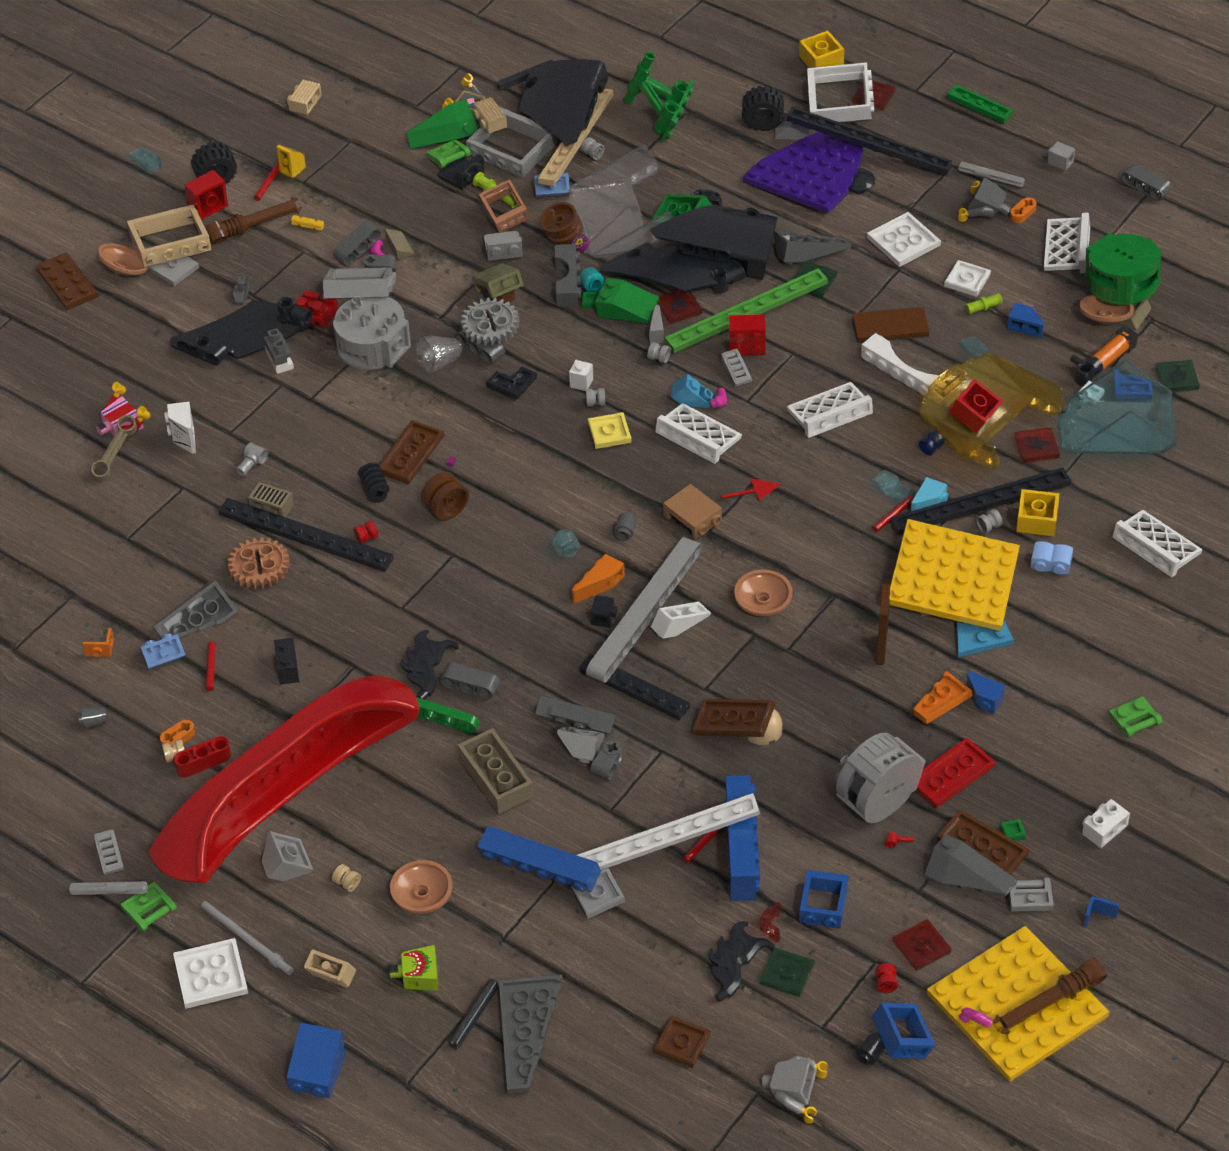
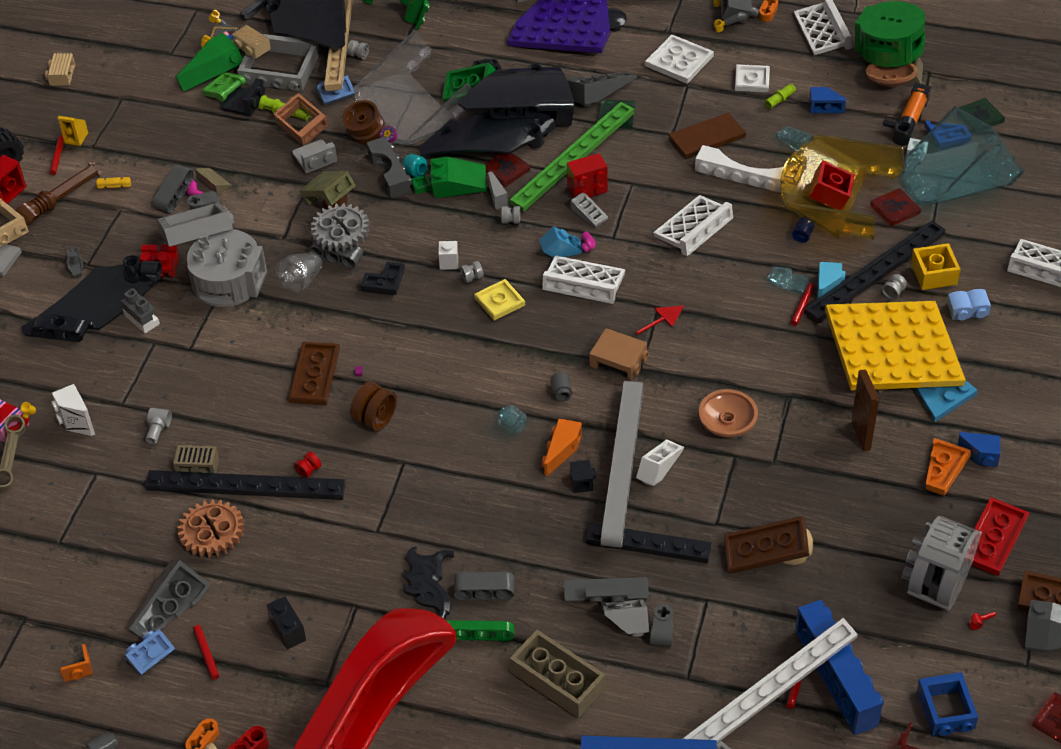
camera: 20 degrees left, 0 degrees up
(374, 482) = (293, 412): black piece -> none

